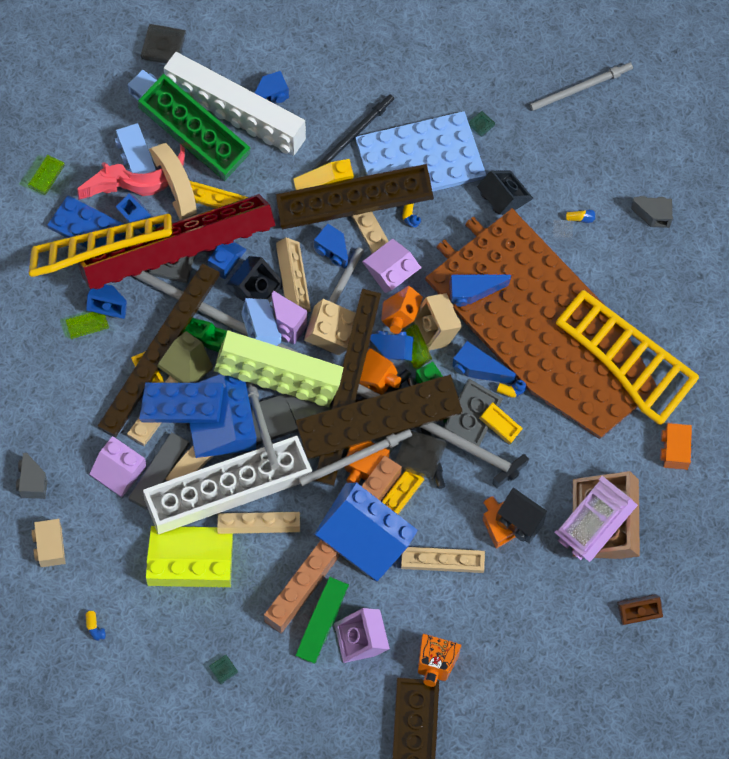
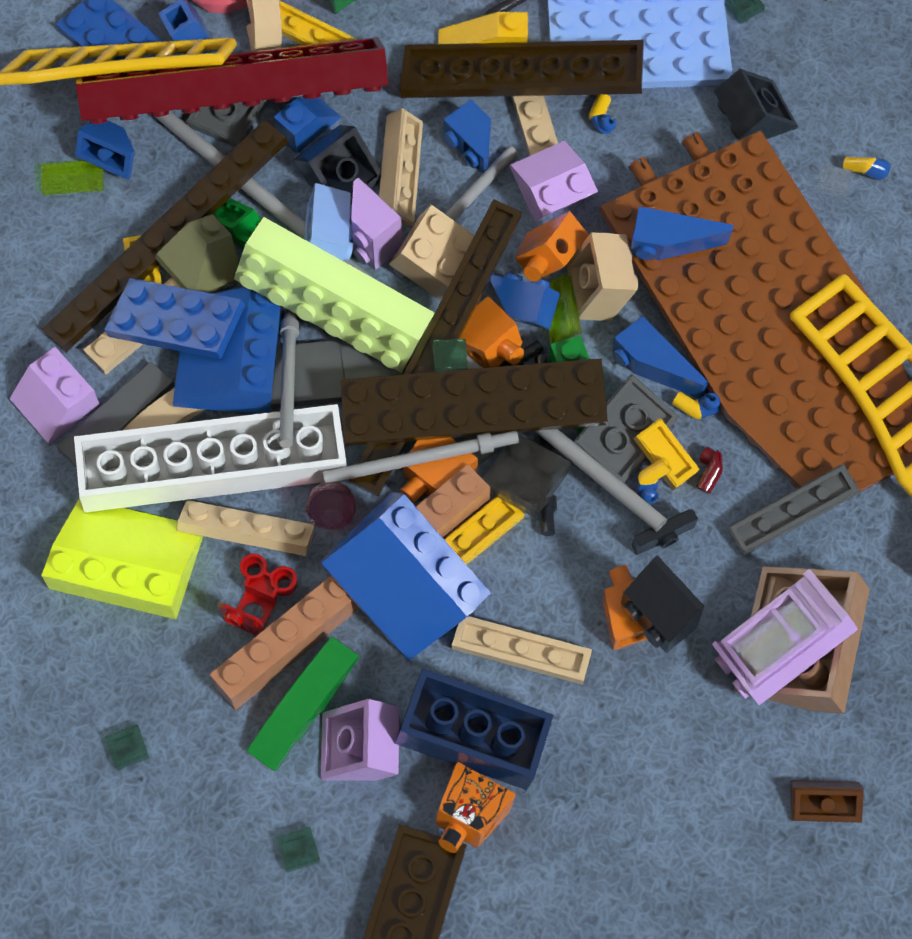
camera: 15 degrees right, 0 degrees up
(277, 558) = (259, 590): none -> red piece
(307, 498) = (330, 505): none -> clear pink hair
(341, 706) = (298, 849): none -> tile
(358, 391) = (449, 355): none -> clear green tile
(428, 612) = (475, 729): none -> dark blue brick
(493, 441) = (648, 479): none -> yellow arm
(529, 420) = (713, 471): none -> dark red arm
(583, 441) = (793, 510): none -> dark grey tile

